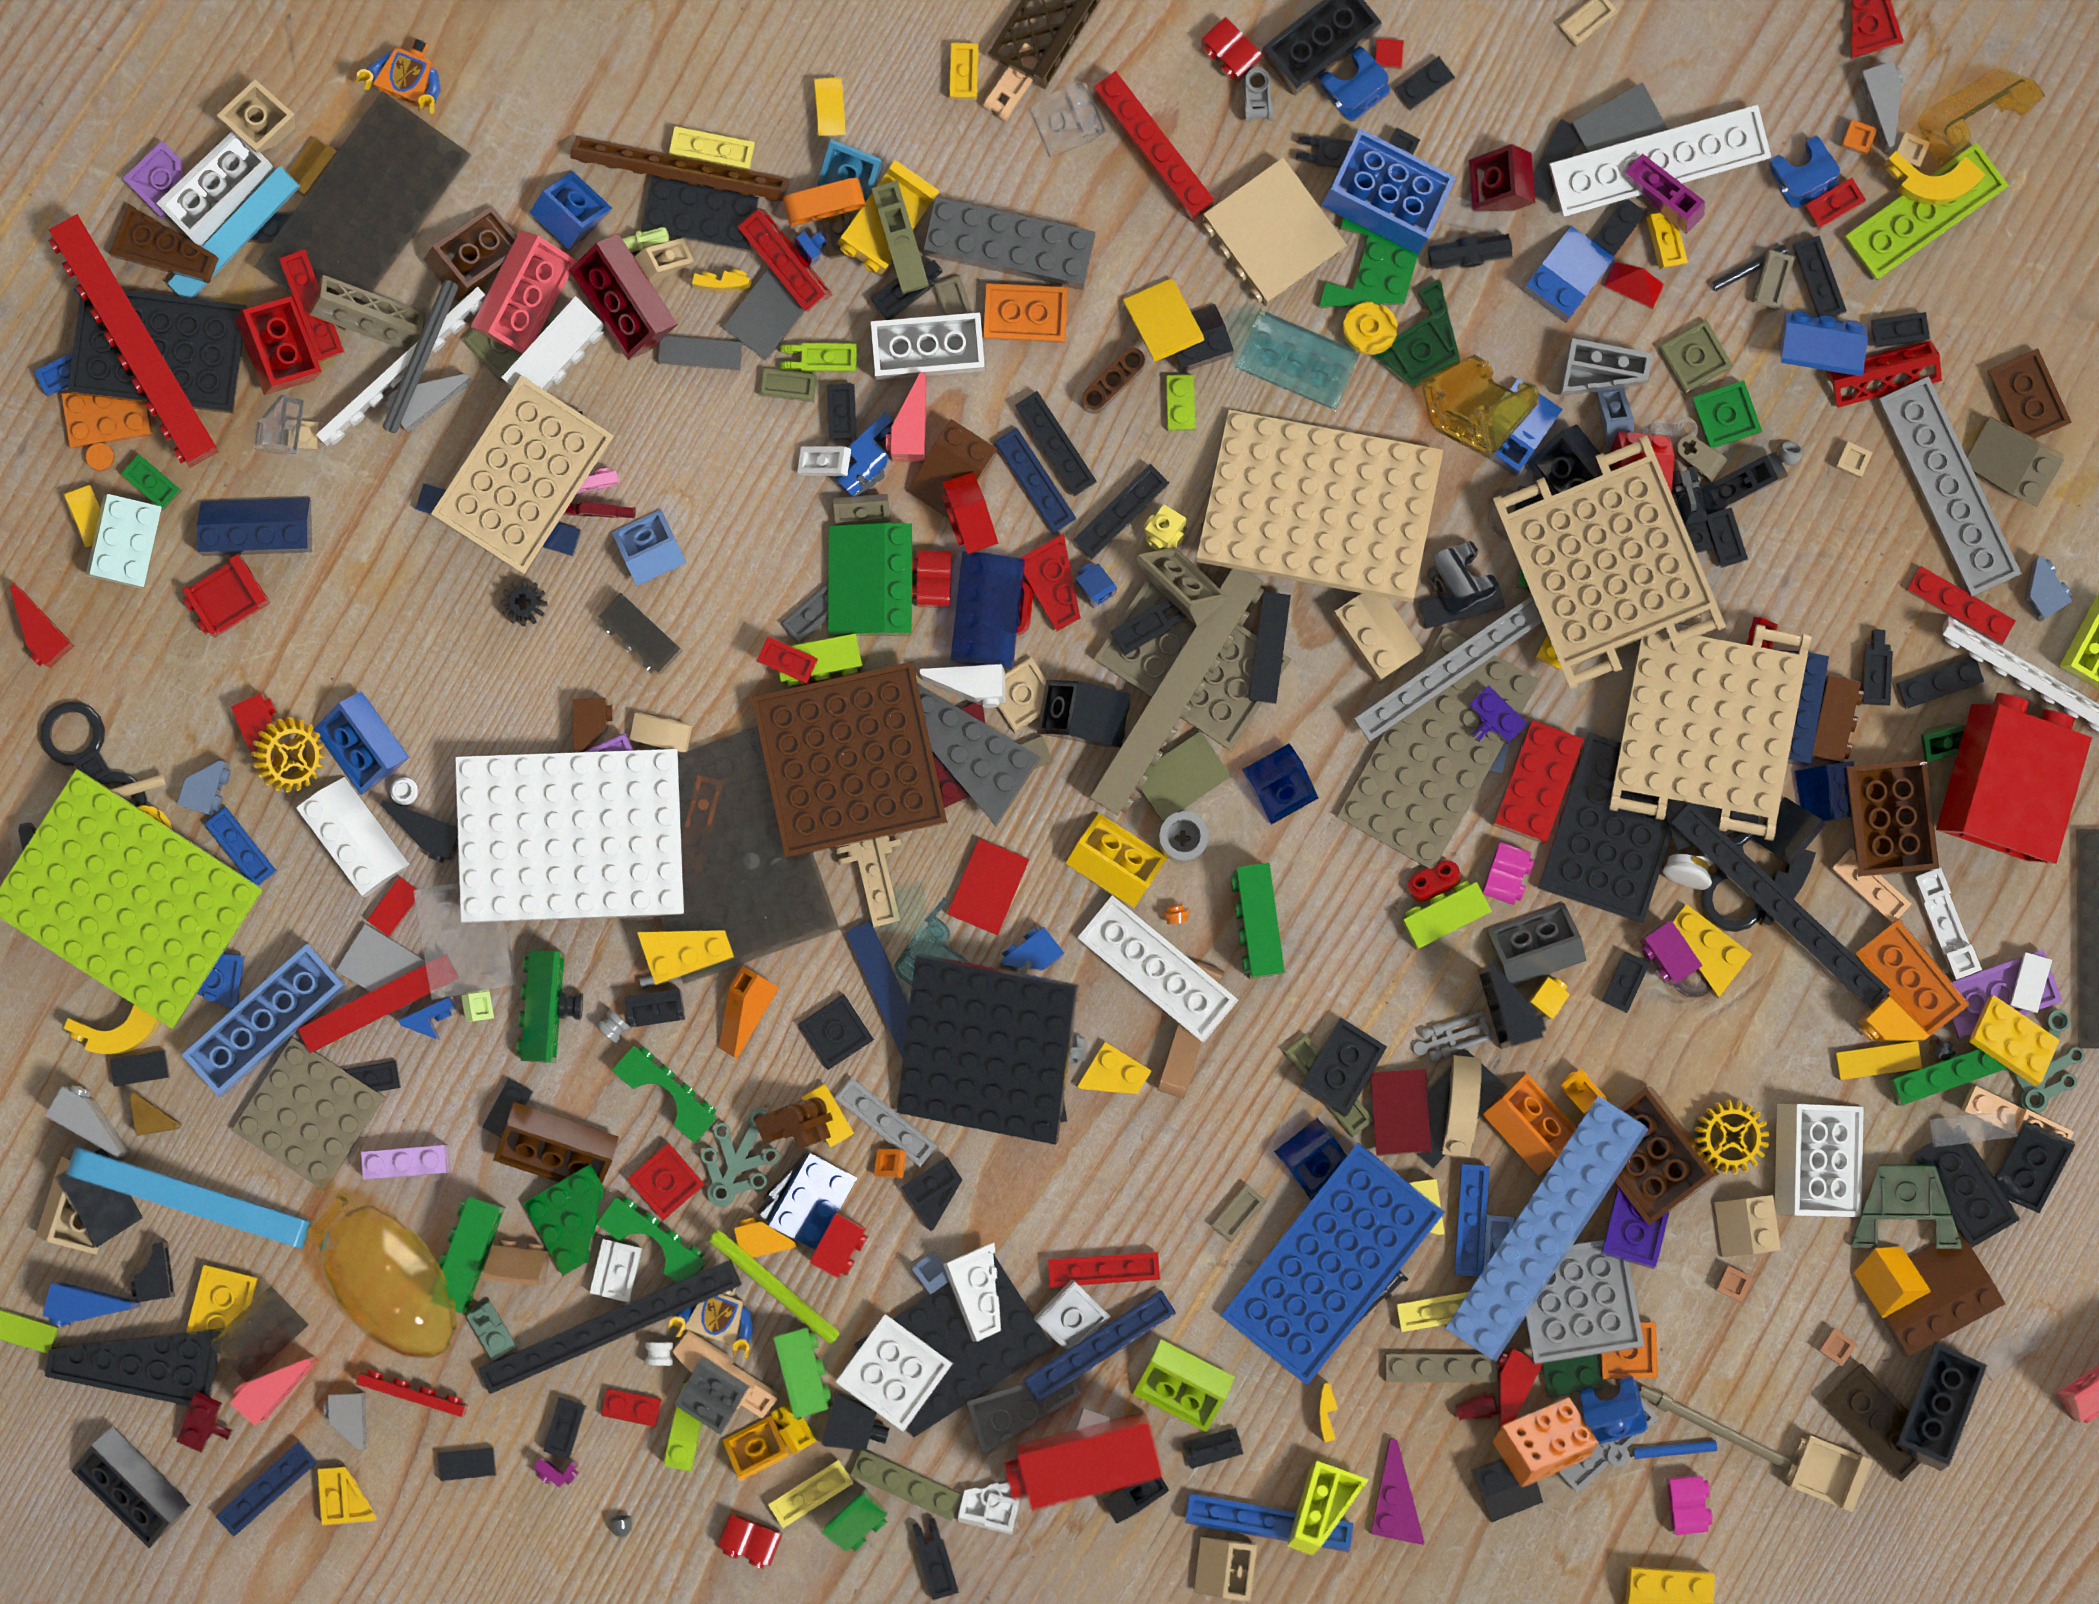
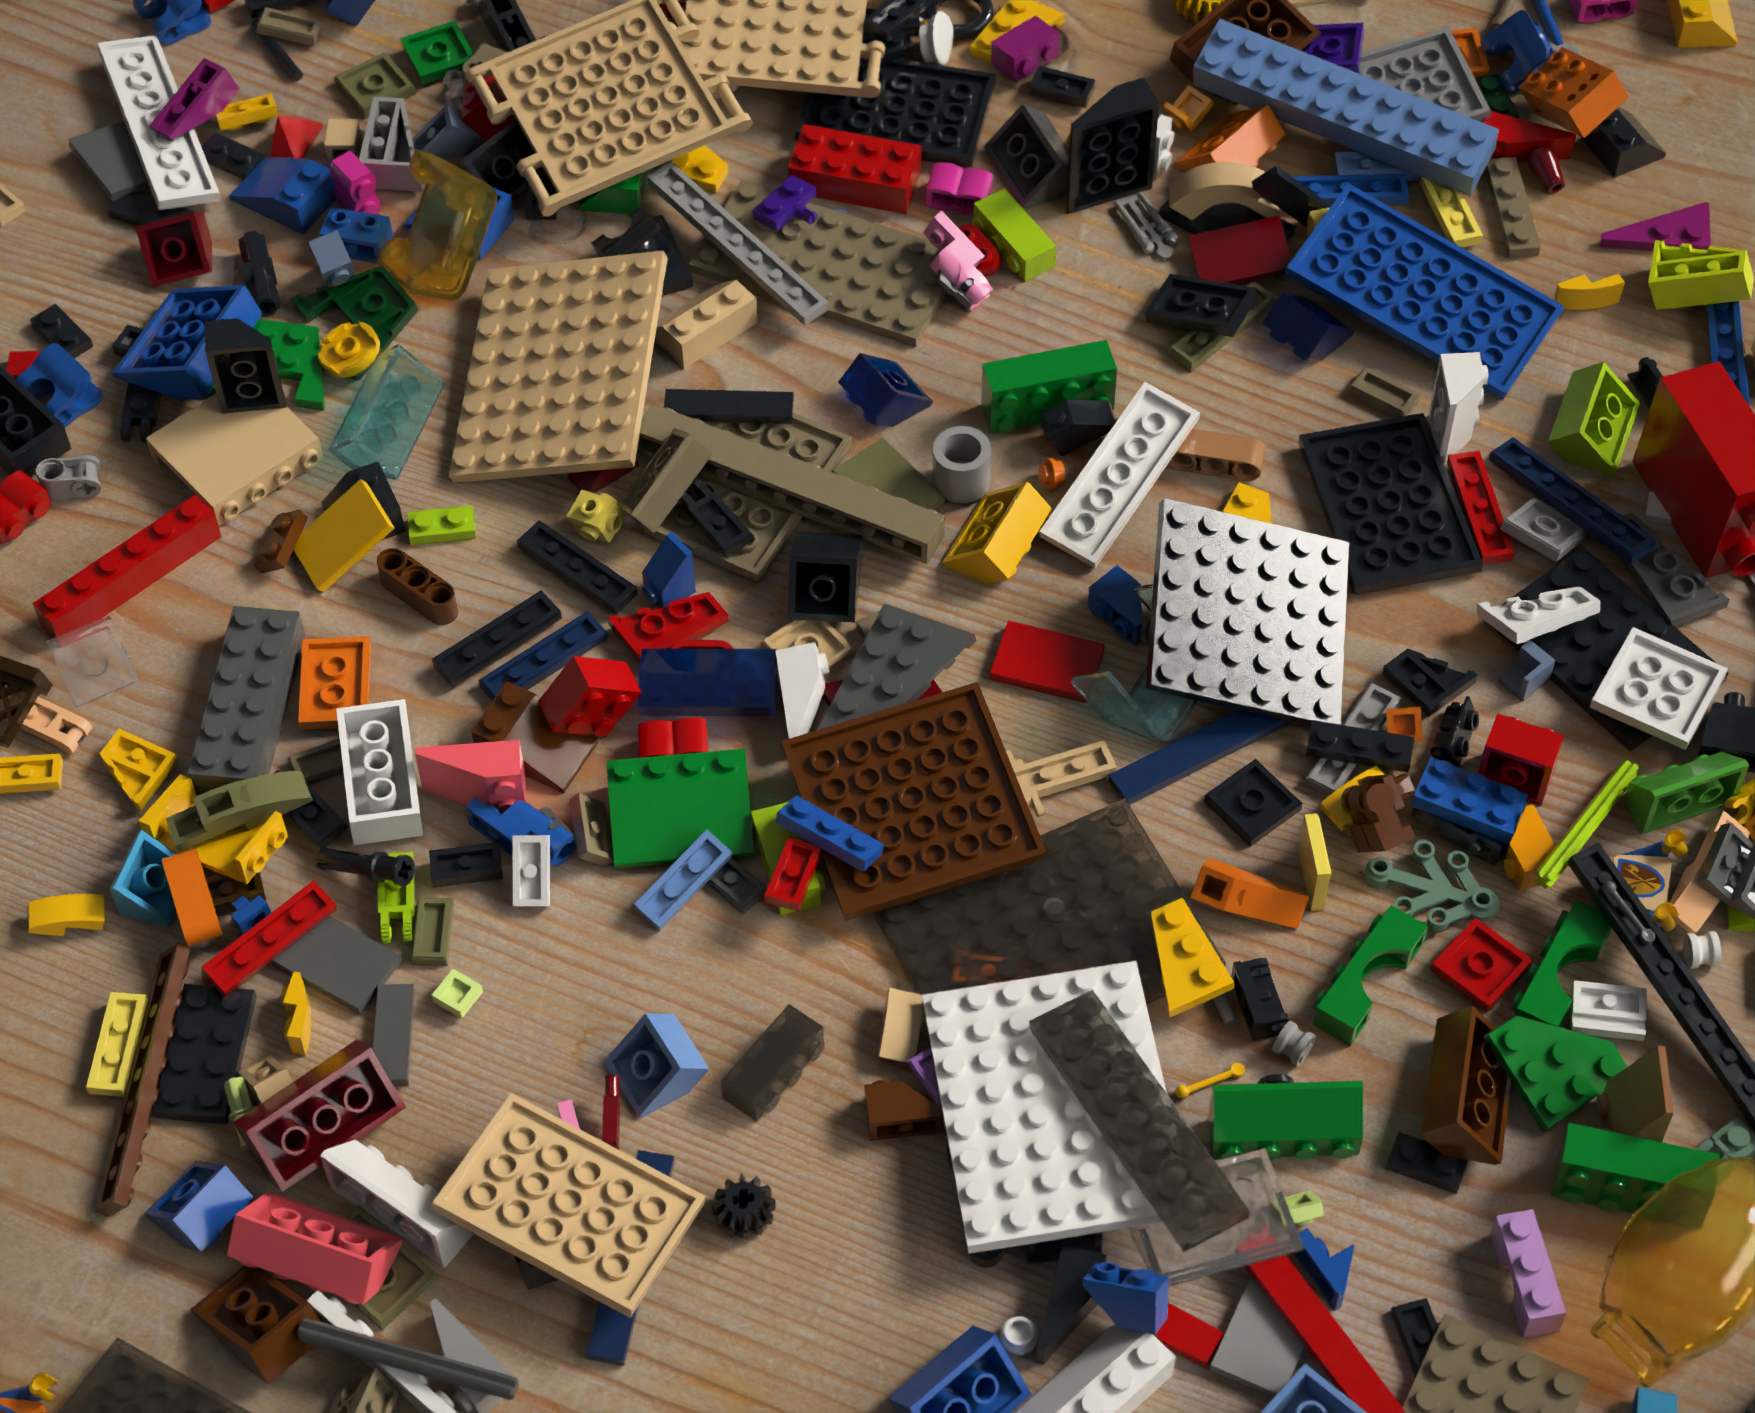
camera: 90 degrees left, 30 degrees down
(408, 867) = (1129, 1297): none -> blue slope
(537, 890) = (1139, 1121): none -> clear smoke plate
(600, 981) = (1236, 1071): none -> yellow hinge
(658, 1304) = (1646, 935): none -> dark grey hinge
(727, 401) = (457, 993): none -> yellowish green plate
(760, 1065) = (1314, 862): none -> light yellow tile
(805, 577) = (683, 880): none -> medium blue plate
(816, 690) = (829, 833): none -> blue plate
(836, 343) = (376, 867): none -> black pin
(871, 1123) = (1360, 746): none -> black plate
(889, 1211) = (1460, 722): none -> black hinge
(962, 157) = (137, 765): none -> yellow wing
(1116, 1194) = (1390, 502): none -> black plate
(1172, 270) = (280, 541): none -> reddish brown plate
(1193, 1263) = (1456, 401): none -> white slope
(1219, 941) = (1076, 423): none -> black slope
(1321, 232) = (242, 367): none -> black slope
(1404, 859) = (957, 262): none -> bright pink plate
(1445, 1154) = (1288, 194): none -> black tile
(1463, 315) = (331, 258): none -> sand blue slope
(1506, 336) = (360, 232): none -> blue brick
(1526, 1057) = (1163, 143): none -> white plate
(1550, 336) = (354, 184): none -> dark pink brick
(1620, 327) = (341, 137): none -> tan brick

